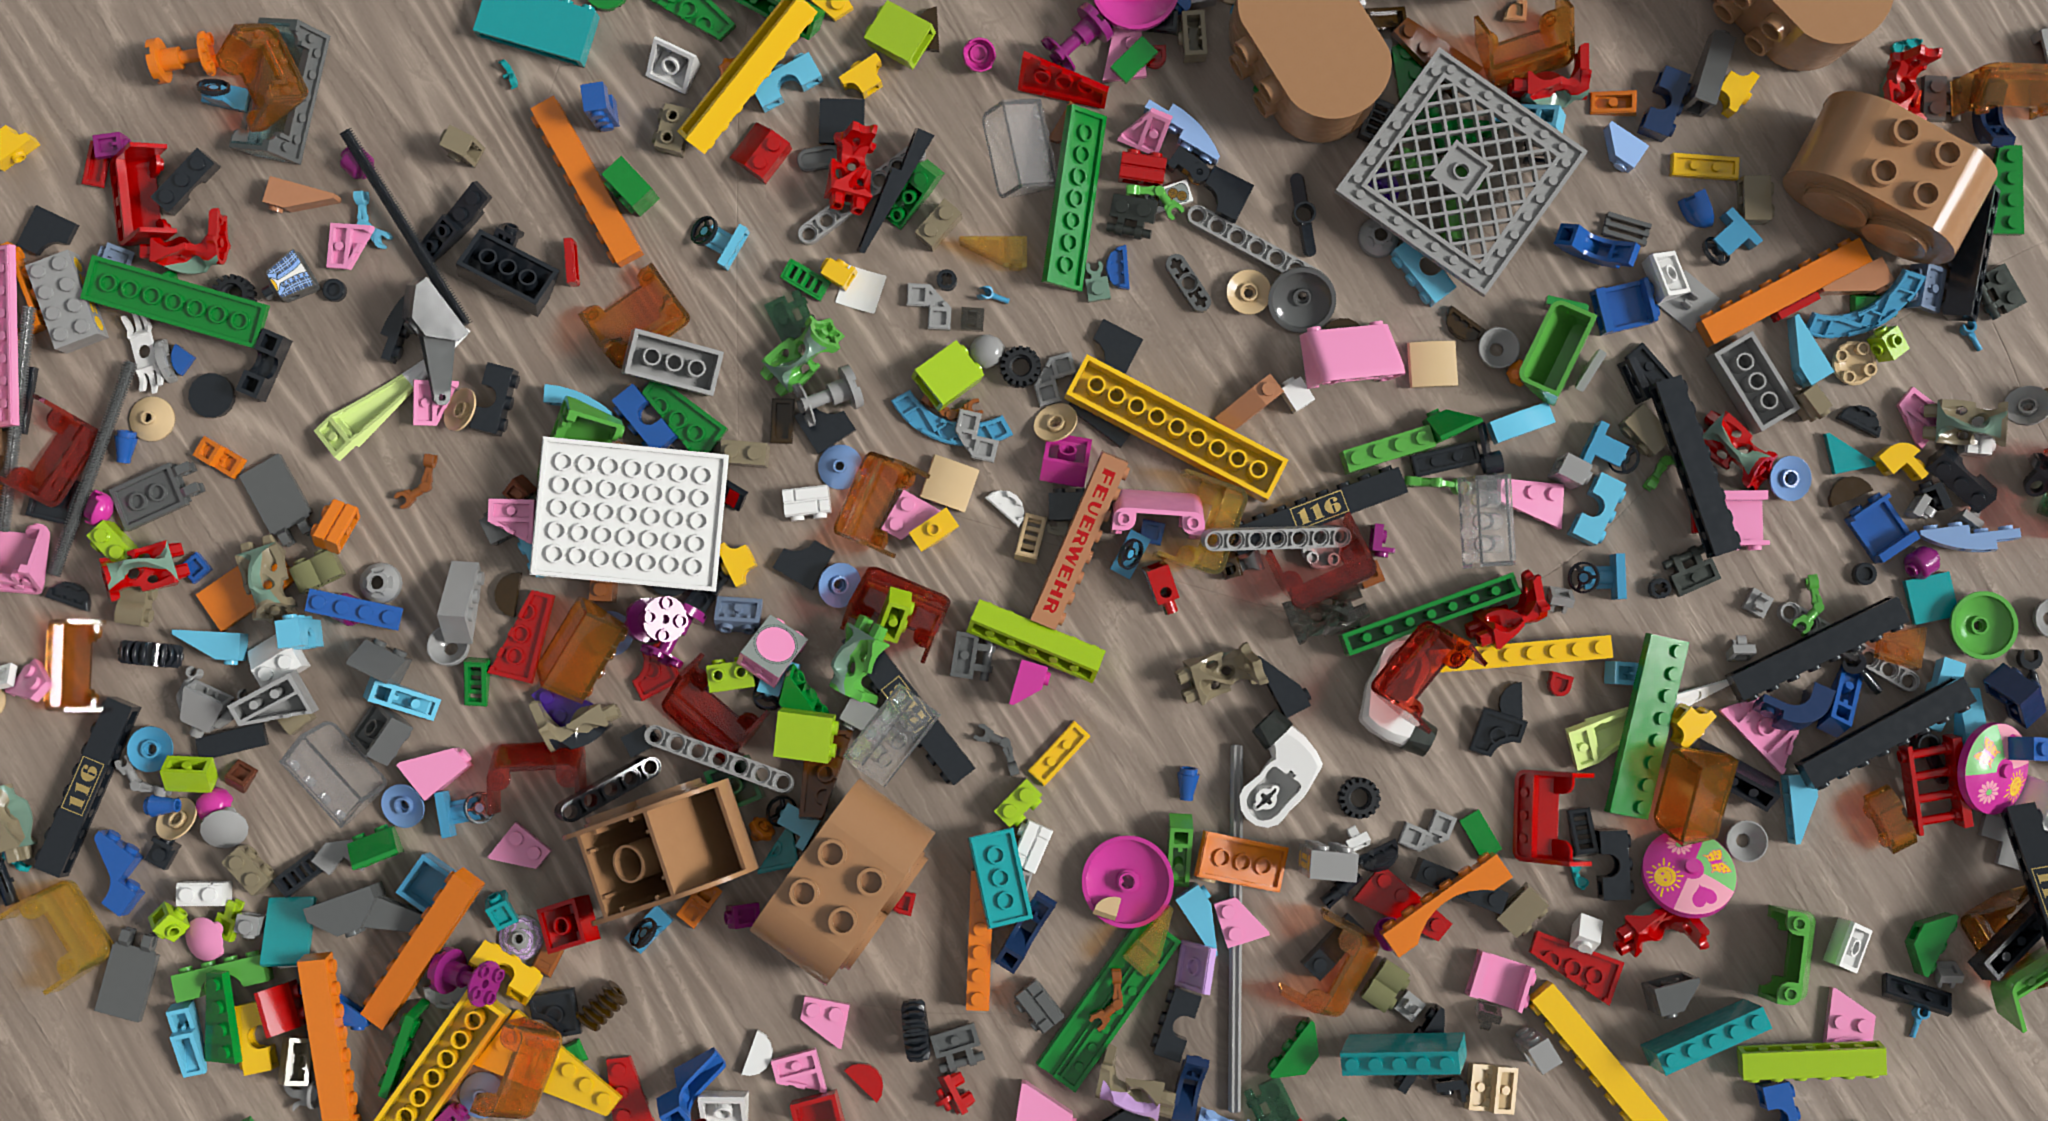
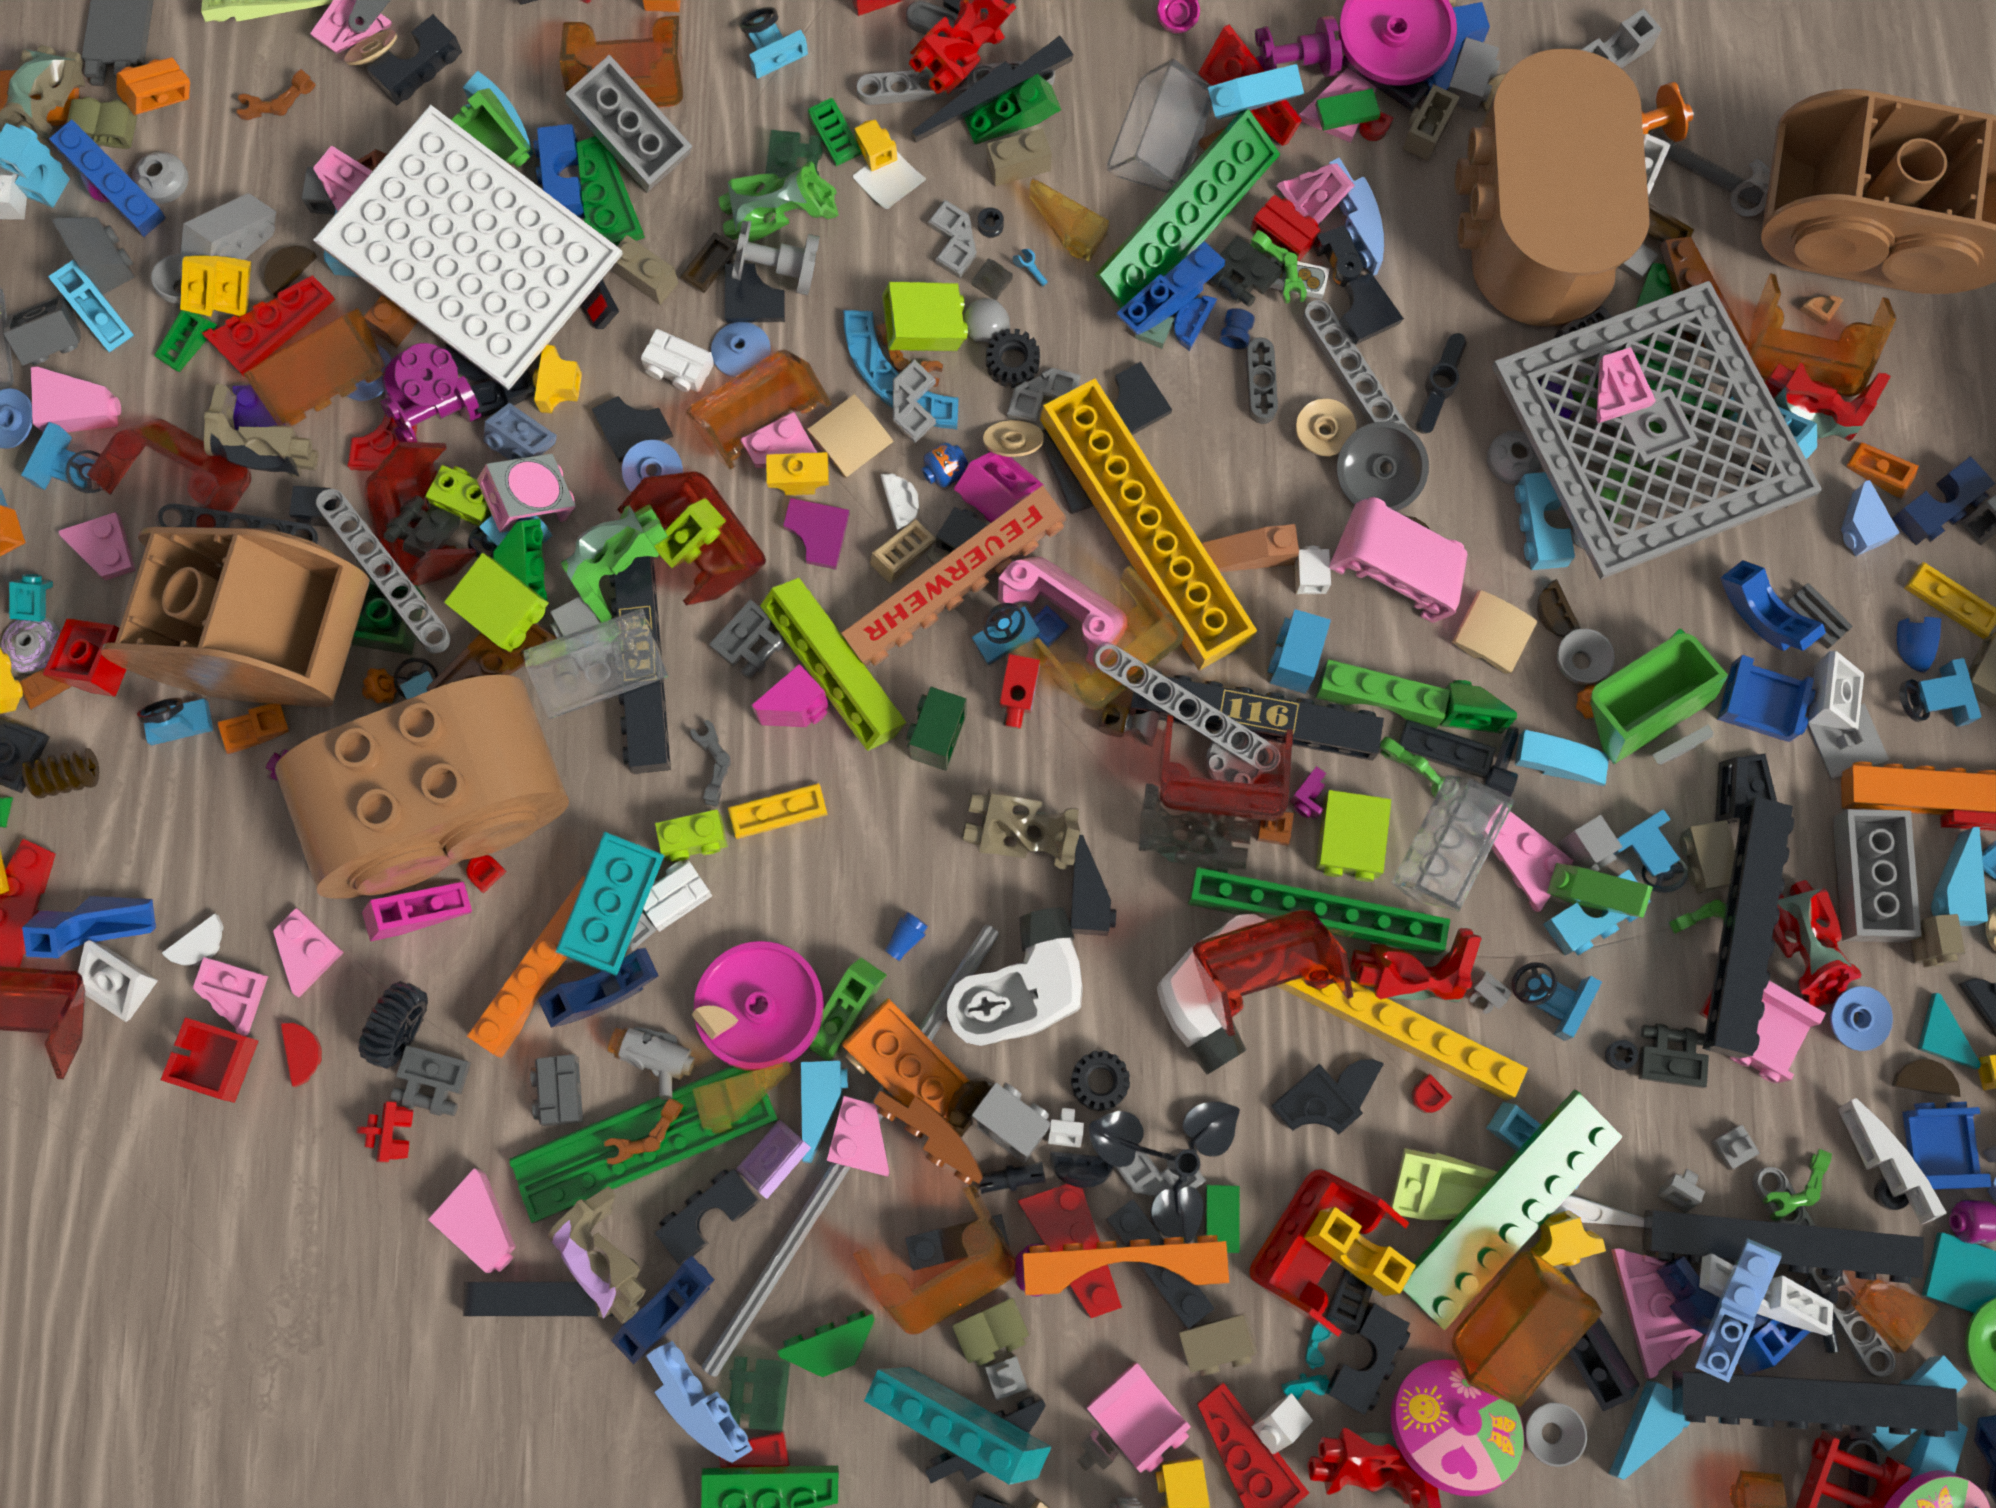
camera: 30 degrees right, 10 degrees down
(477, 637) = (215, 284): none -> yellow slope
(727, 711) = (431, 531): none -> pearl dark grey plate
(879, 952) = (415, 910): none -> dark pink slope
(968, 556) = (820, 530): none -> magenta tile
(1022, 466) = (944, 465): none -> blue head
(1069, 89) = (1255, 91): none -> medium azure slope
(1082, 947) = (654, 1052): none -> light grey piece
(1096, 260) = (1173, 291): none -> blue slope
(1128, 643) = (937, 728): none -> dark green brick
(1152, 258) = (1237, 327): none -> dark blue wheel
(1289, 859) = (966, 1101): none -> dark brown tile
(1291, 894) = (944, 1141): none -> dark orange slope
(1321, 455) = (1301, 647): none -> dark azure piece
(1422, 552) = (1353, 835): none -> lime brick
(1425, 160) = (1621, 386): none -> bright pink wing
(1443, 787) = (1210, 1129): none -> black plant
(1585, 809) = (1375, 1265): none -> yellow arch
(1591, 897) = (1317, 1384): none -> teal piece
(1593, 499) = (1599, 890): none -> bright green slope
(1814, 710) = (1737, 1310): none -> light blue slope
(1825, 686) = (1783, 1300): none -> white slope
(1845, 553) = (1882, 1149): none -> white slope

